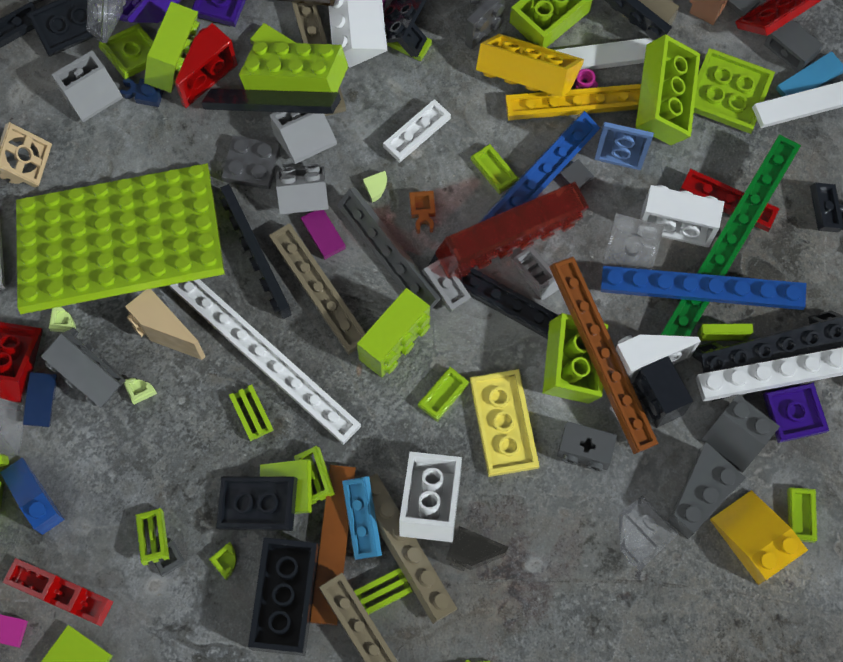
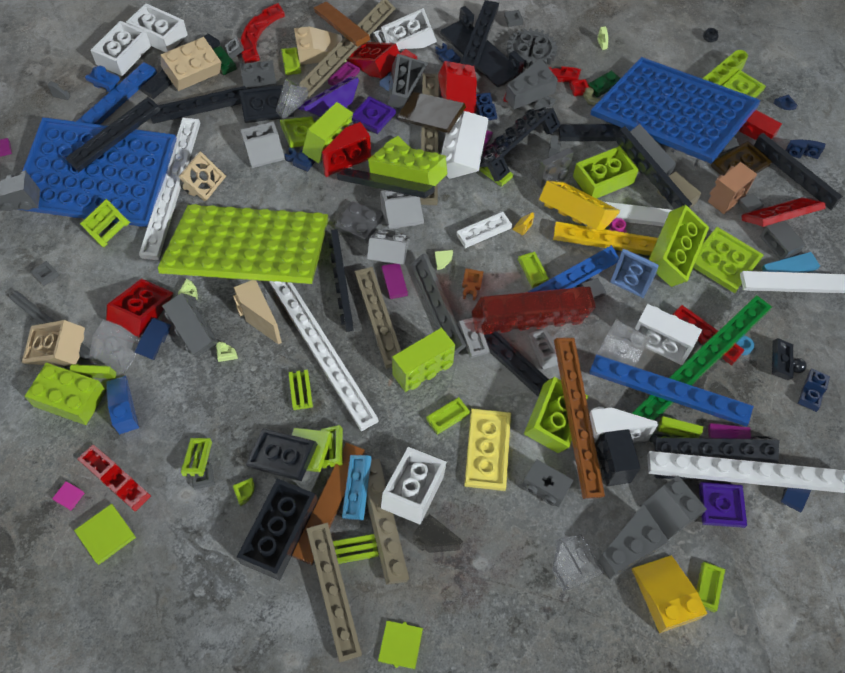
camera: 15 degrees right, 10 degrees down
(465, 108) = (524, 224): none -> yellow slope
(779, 199) = (747, 344): none -> dark azure tile
(782, 320) = (728, 431): none -> magenta tile

